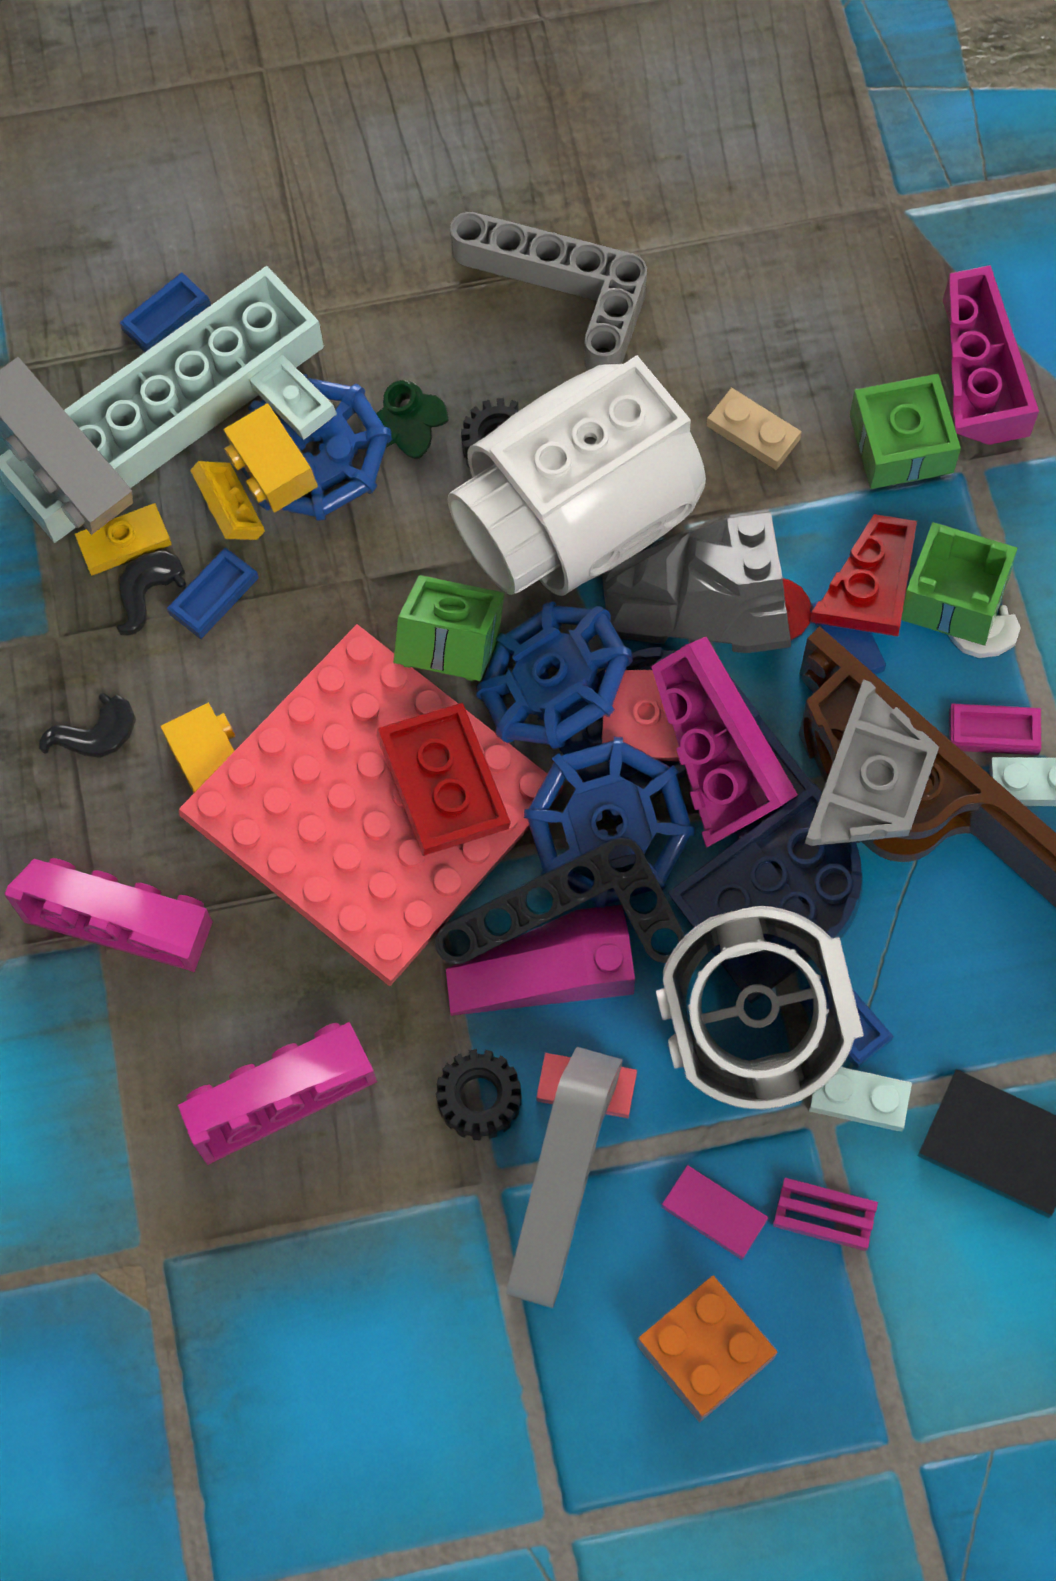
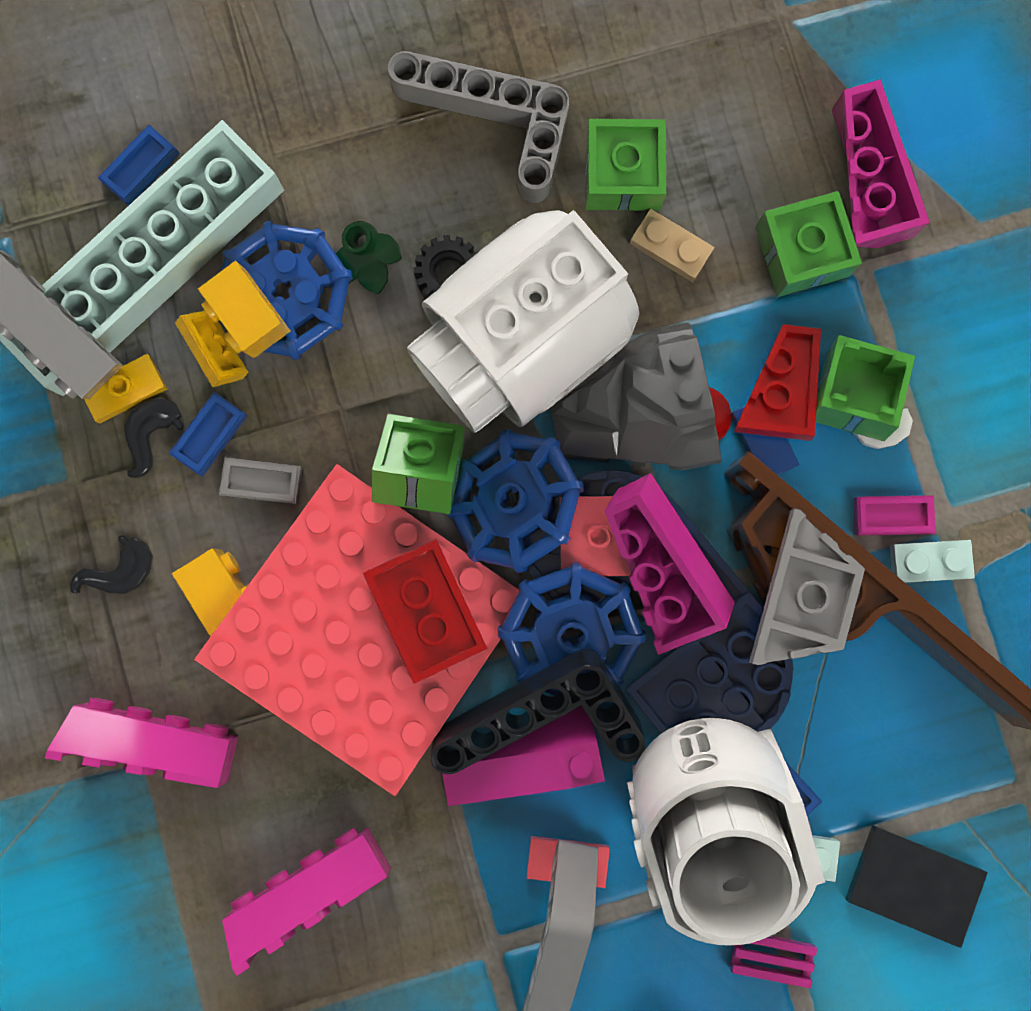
camera: 10 degrees left, 15 degrees up
(267, 646) = (261, 481): none -> light grey tile
(293, 396) = (259, 248): light aqua plate -> none
(469, 1068) = (473, 904): black tyre -> none
(705, 339) = (625, 164): none -> bright green container
(714, 1212) = (681, 964): dark pink tile -> none

